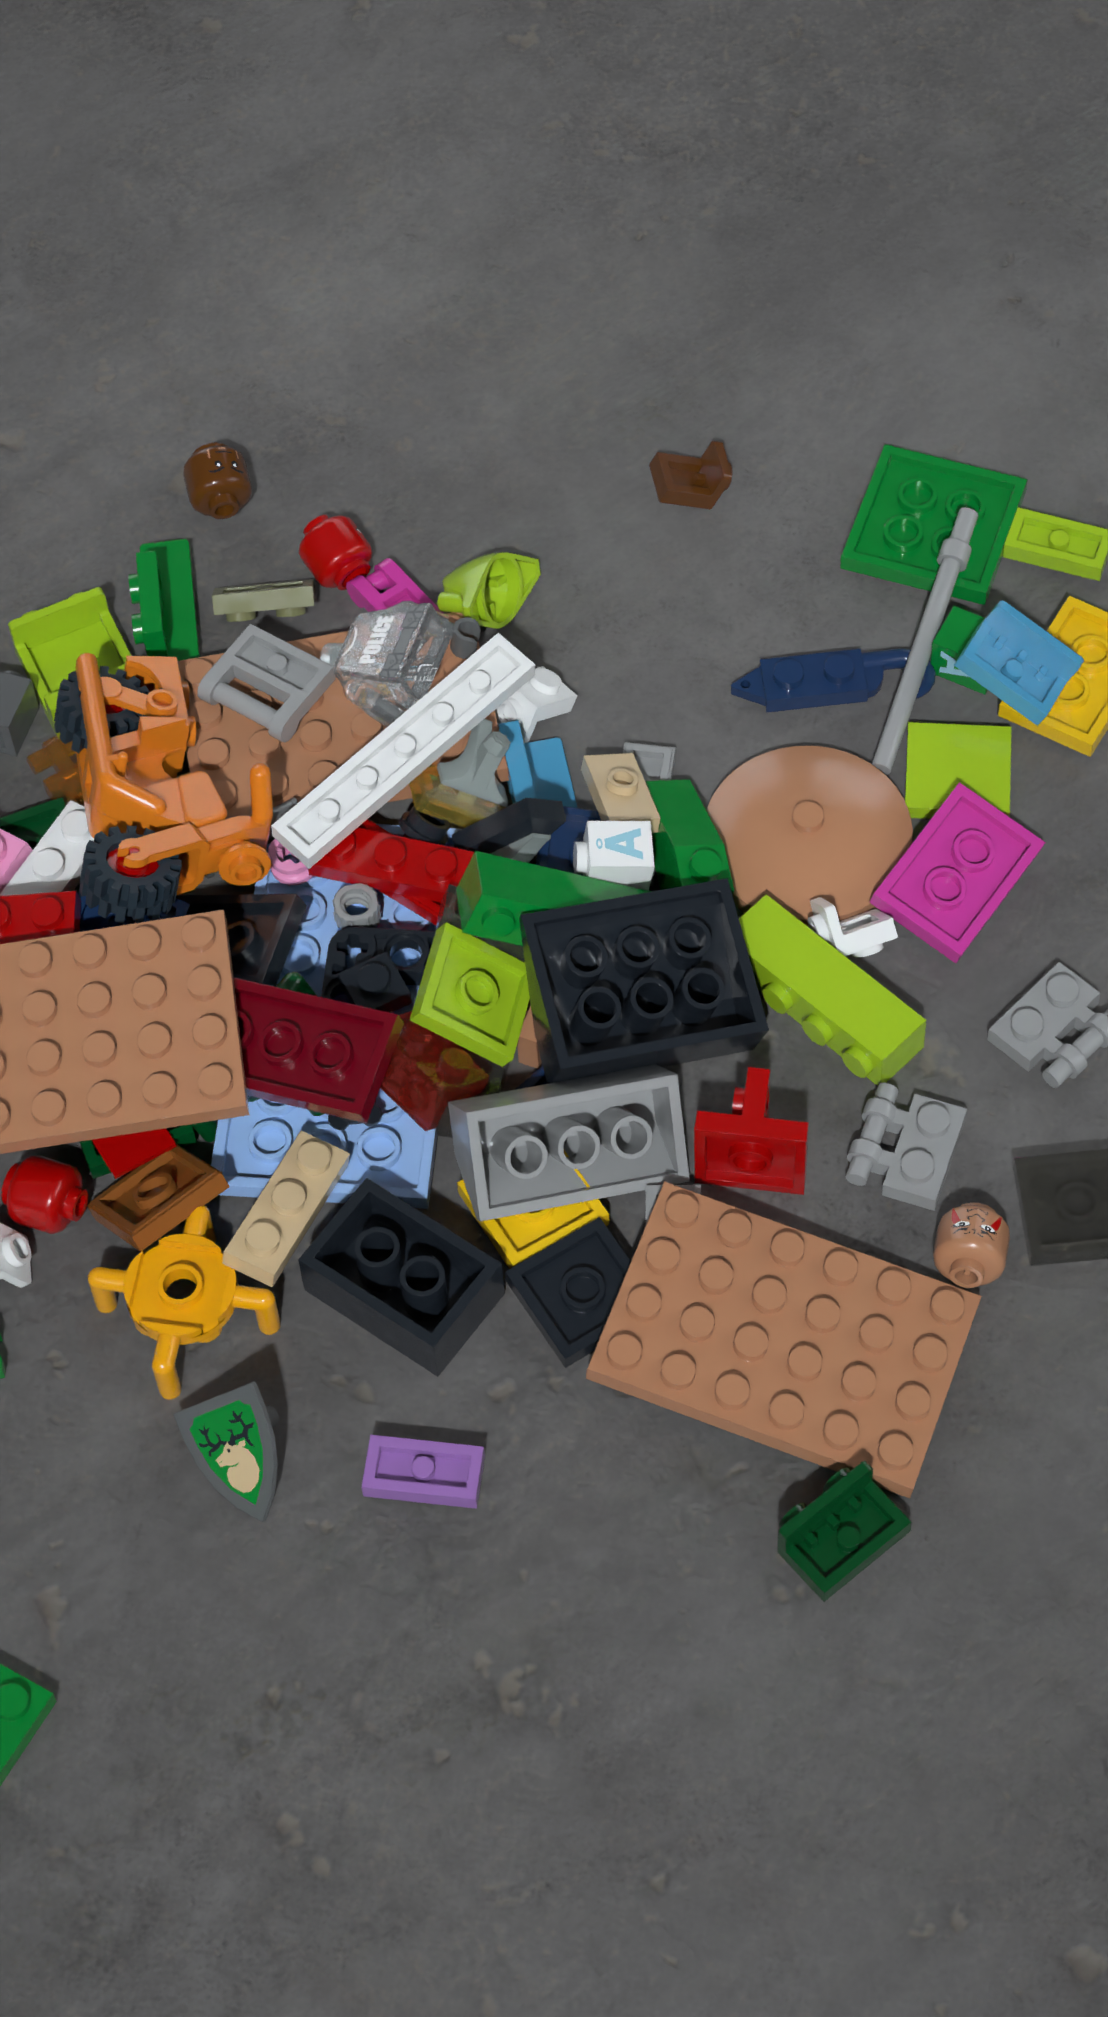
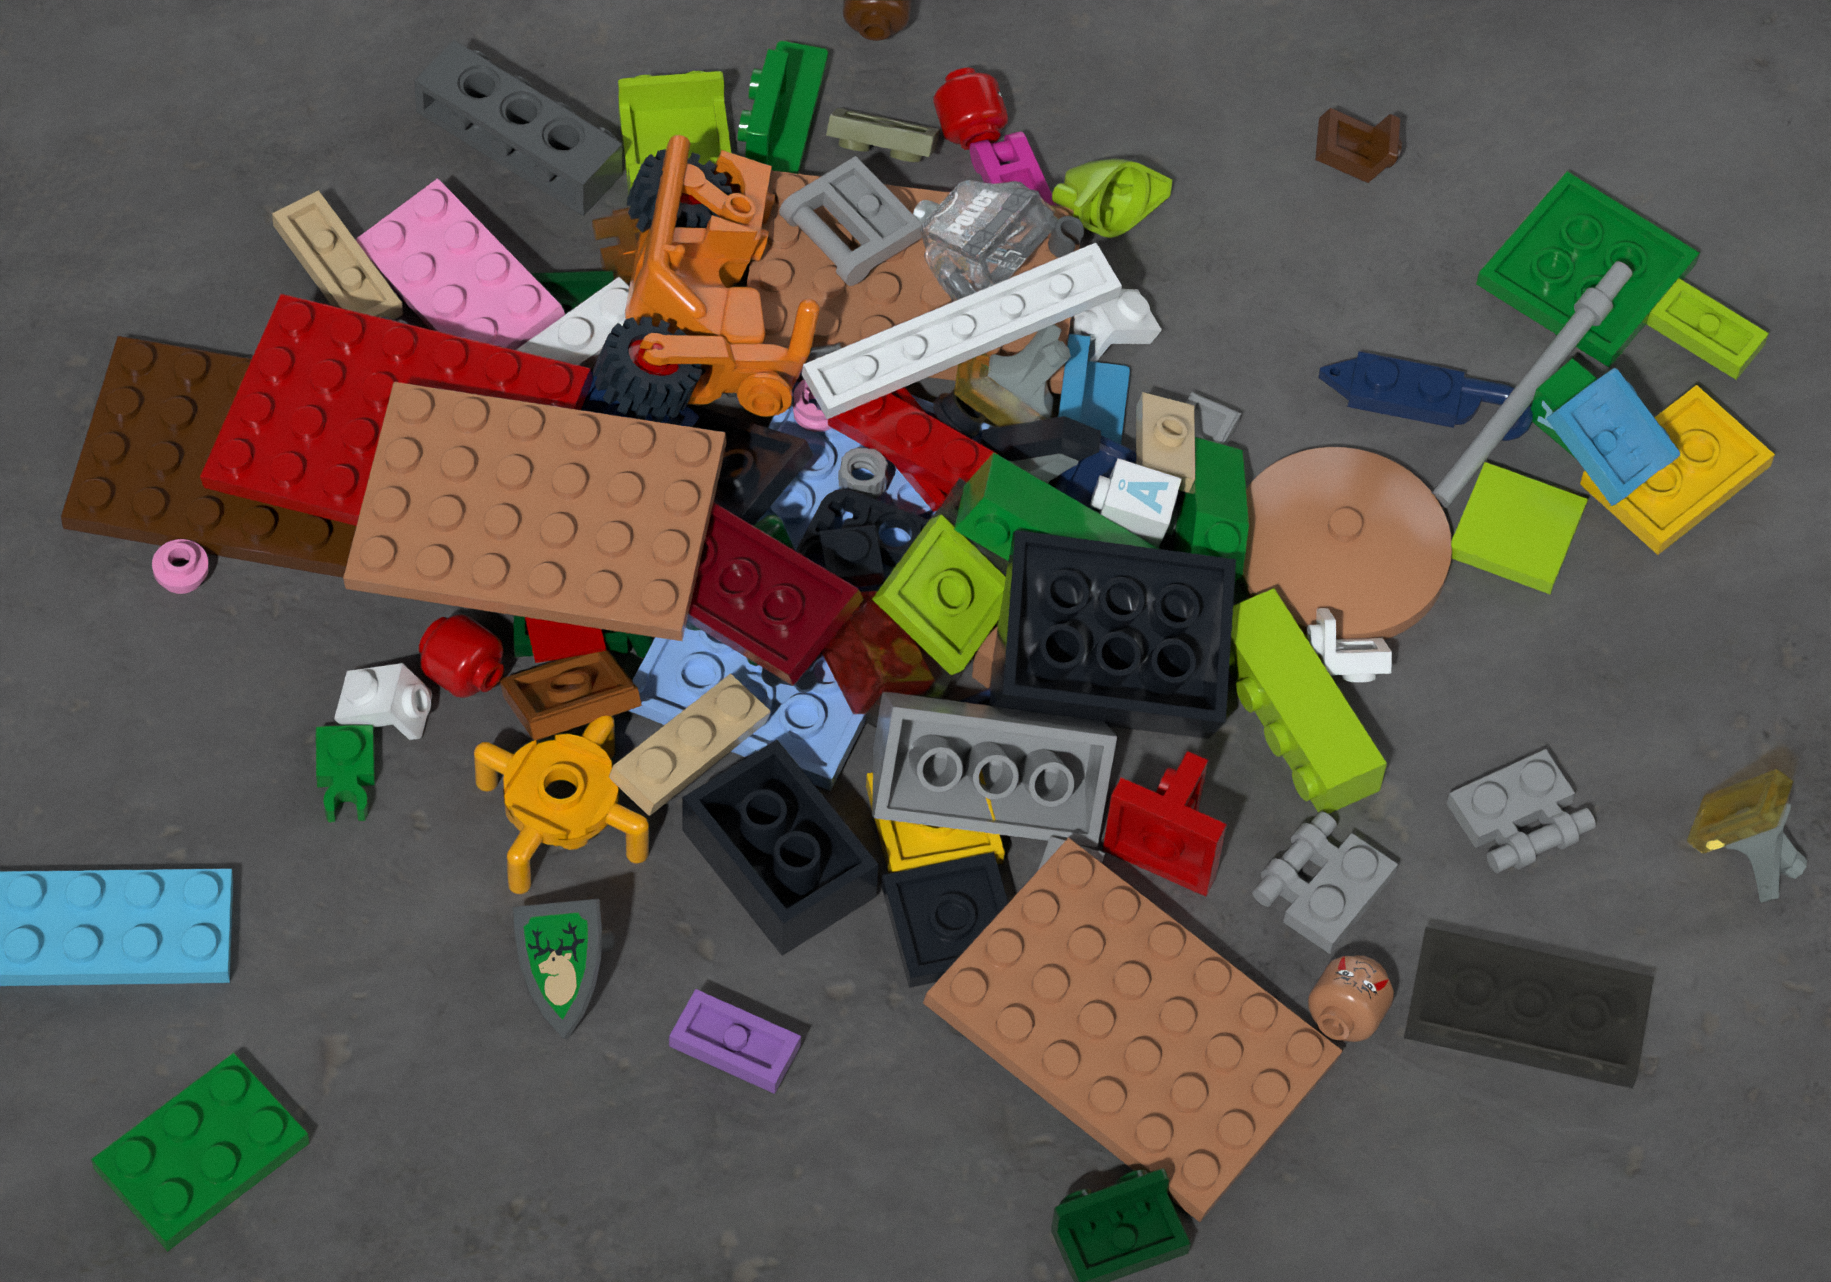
camera: 10 degrees right, 0 degrees up
(957, 872) = (1476, 628): dark pink plate -> none

